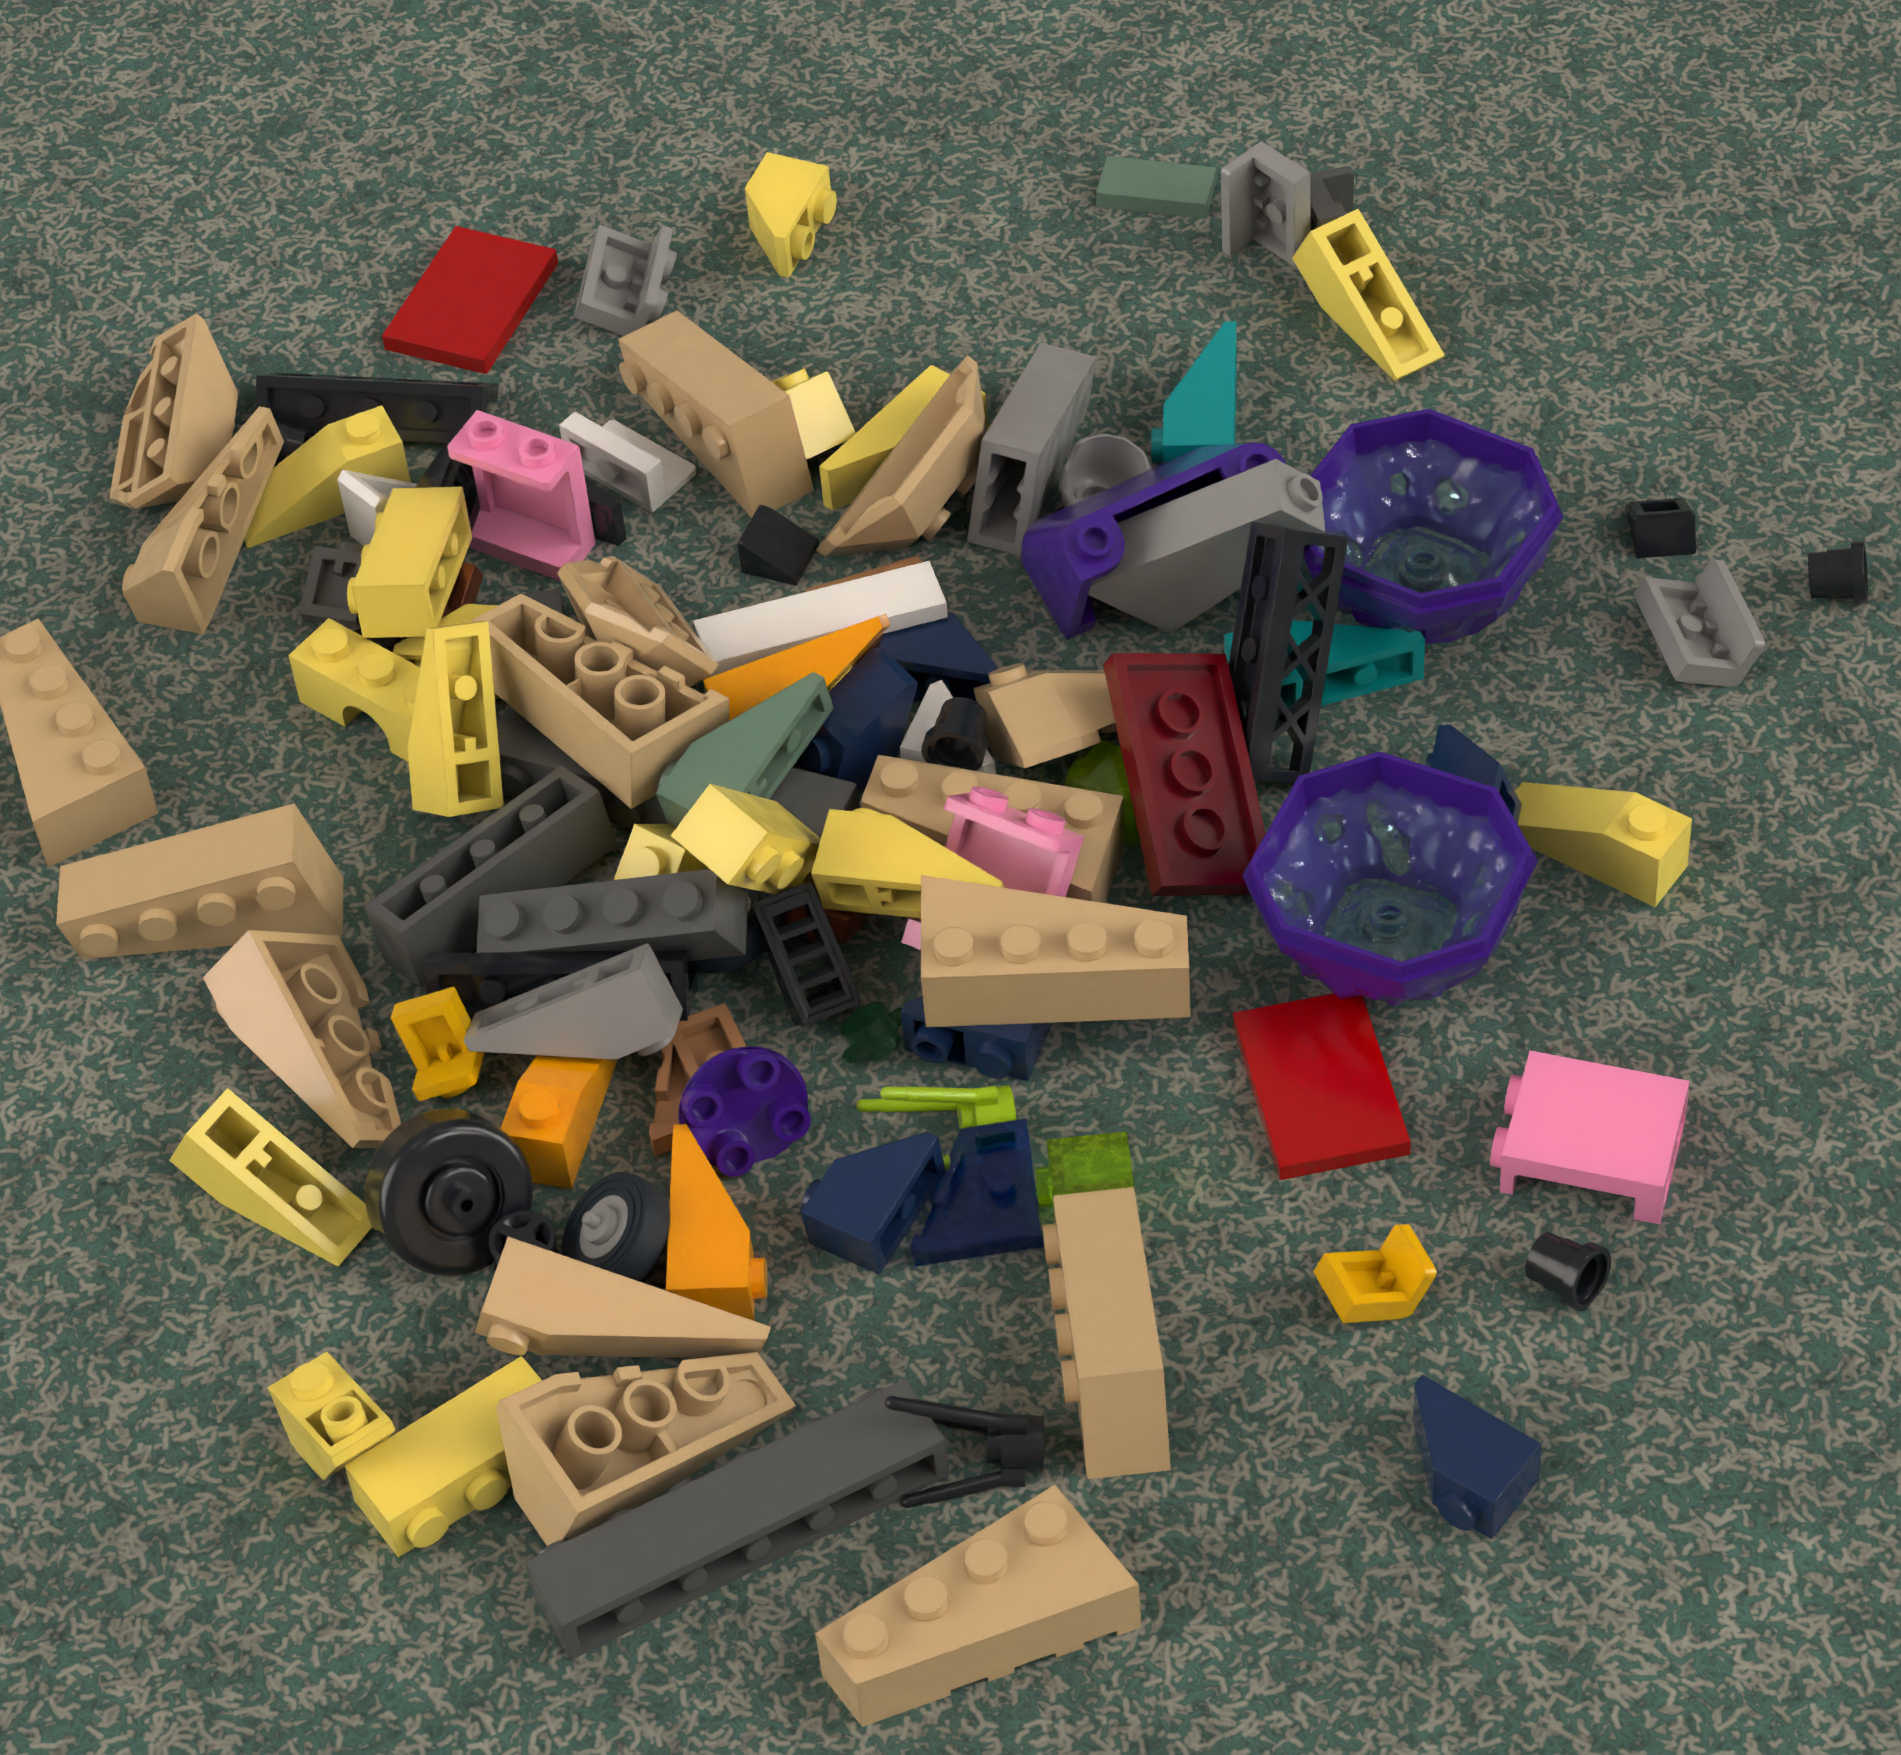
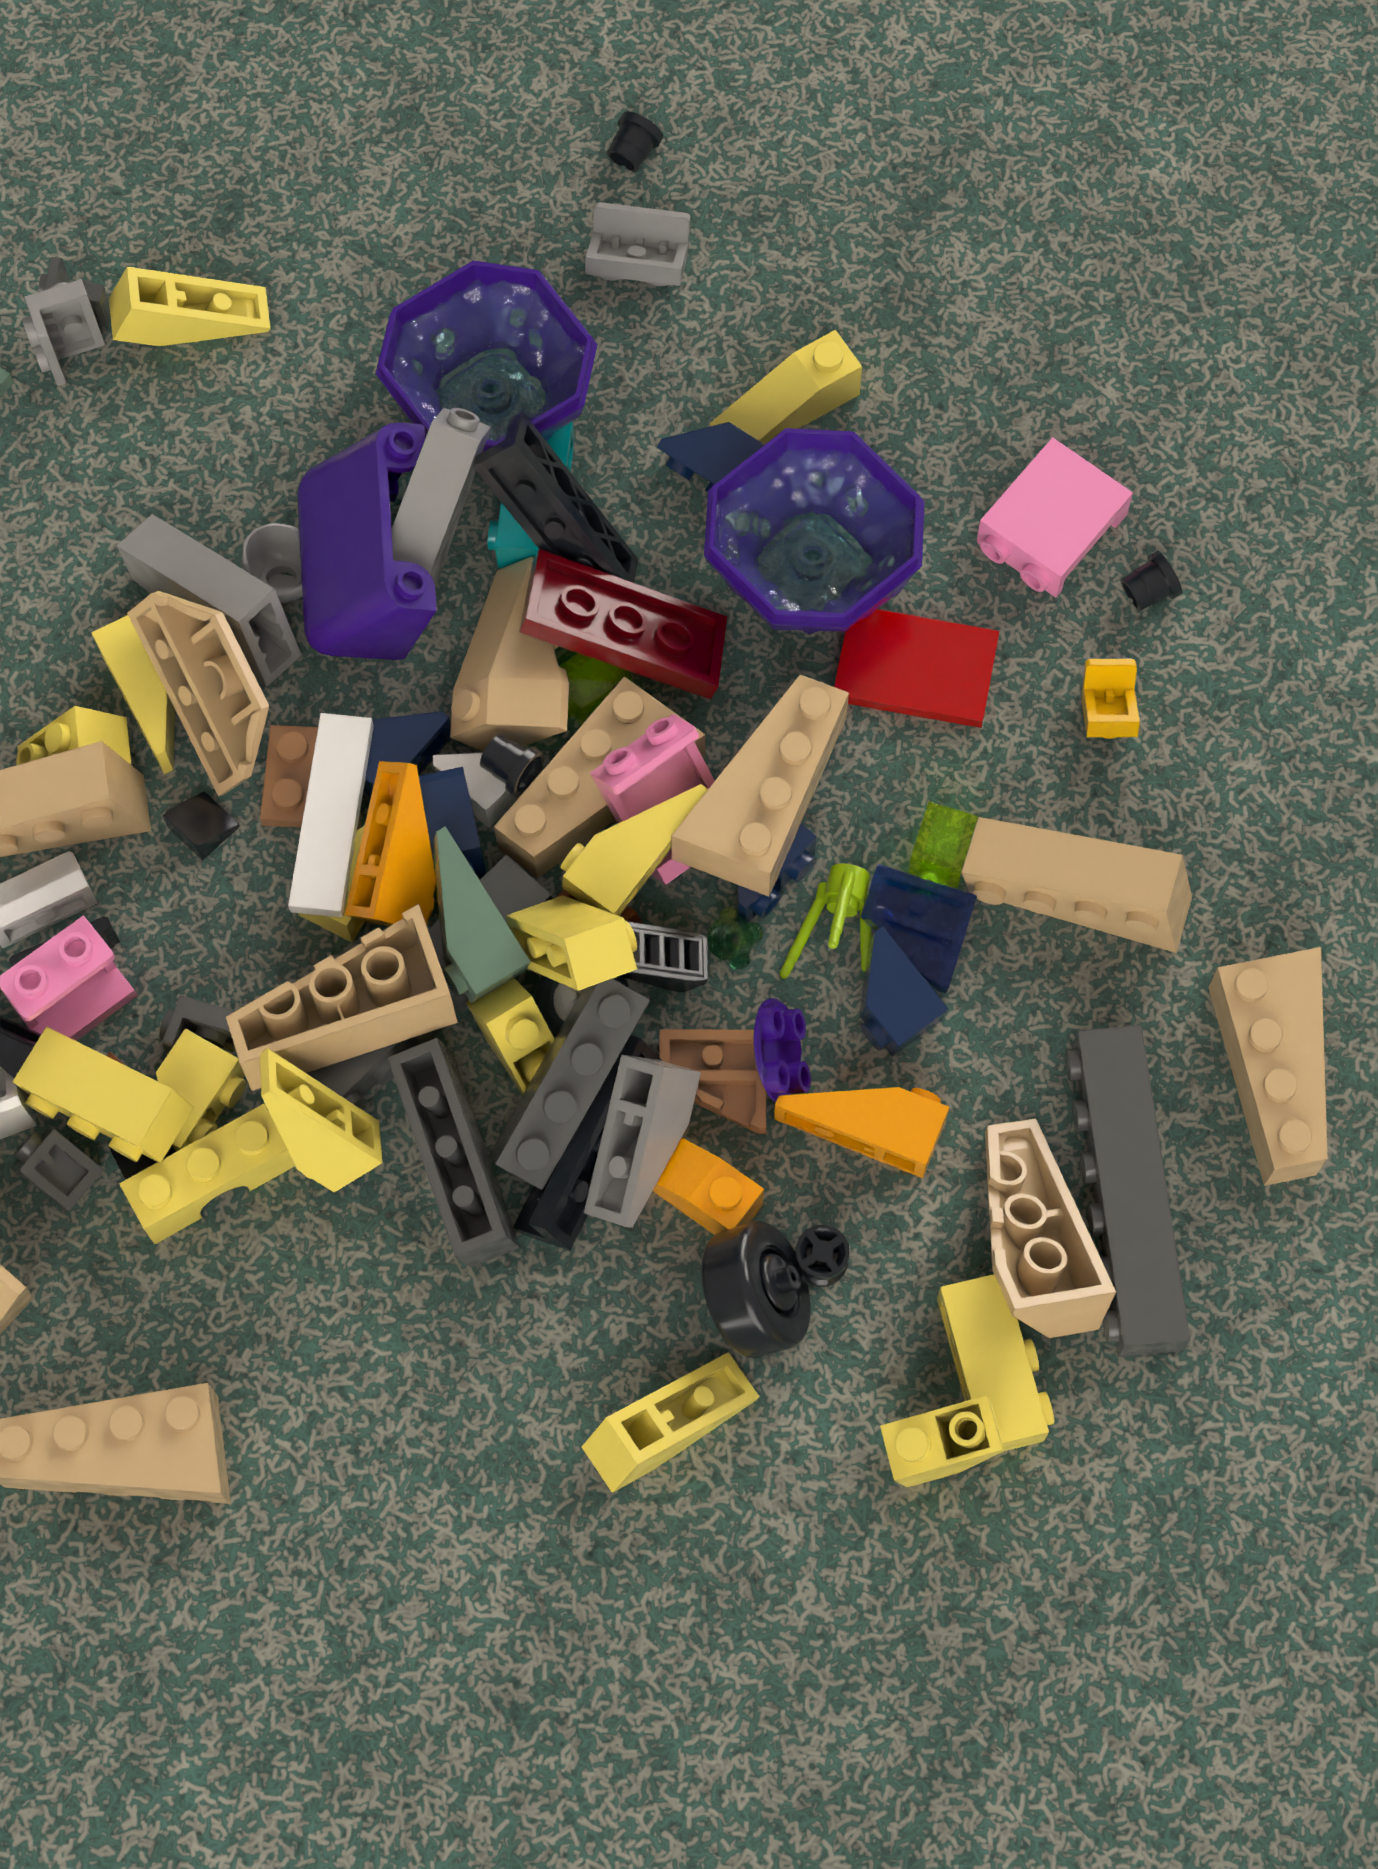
camera: 70 degrees left, 20 degrees up
(202, 888) = (348, 1387): tan wedge -> none
(298, 1012) = (515, 1351): tan wedge -> none
(434, 1036) = (604, 1250): yellow bracket -> none
(576, 1309) = (922, 1243): tan wedge -> none
(618, 1225) = (845, 1183): black wheel -> none
(636, 612) = (265, 949): tan wedge -> none
(1011, 1441) = (1137, 988): black plant -> none
(1203, 403) = (250, 471): teal slope -> none
(1471, 1459) = (1281, 709): dark blue slope -> none
(1661, 527) = (518, 228): black slope -> none

